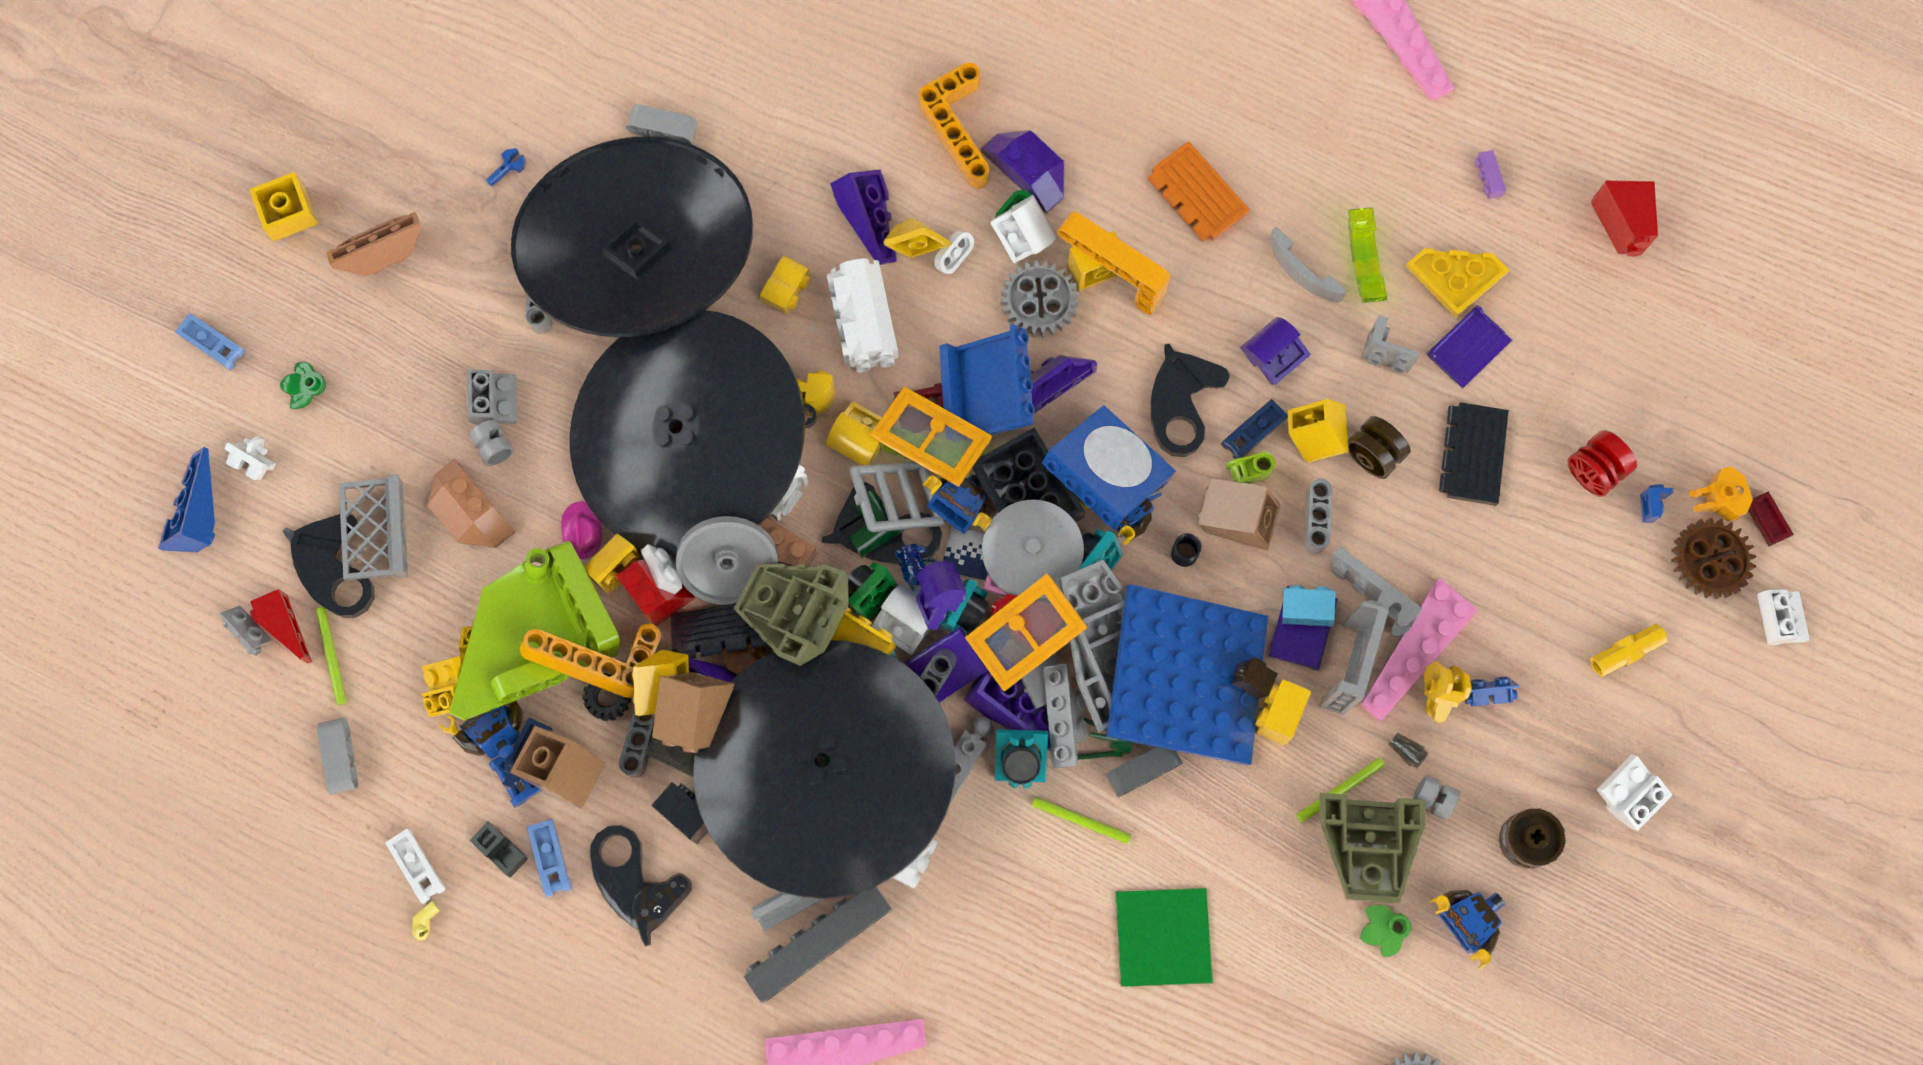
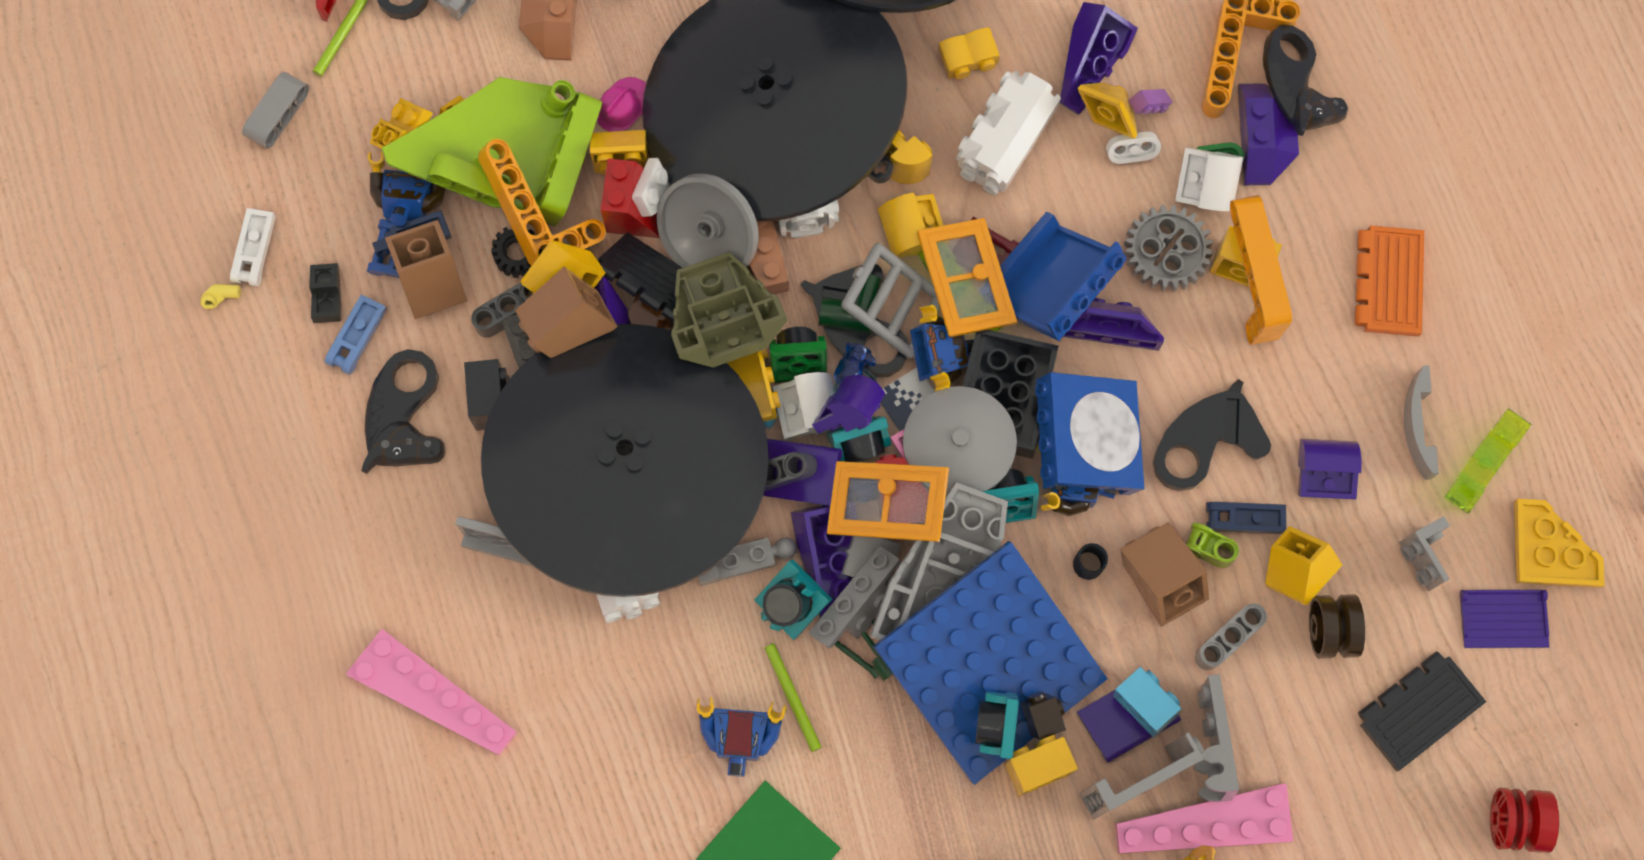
camera: 40 degrees right, 0 degrees up
(816, 944) = (492, 593): dark grey brick -> none
(937, 211) = (1150, 101): none -> medium lavender piece
(1013, 119) = (1289, 82): none -> black animal
(1071, 877) = (739, 733): none -> torso
(1142, 770) = (880, 704): dark grey beam -> none
(1234, 710) = (997, 724): none -> piece

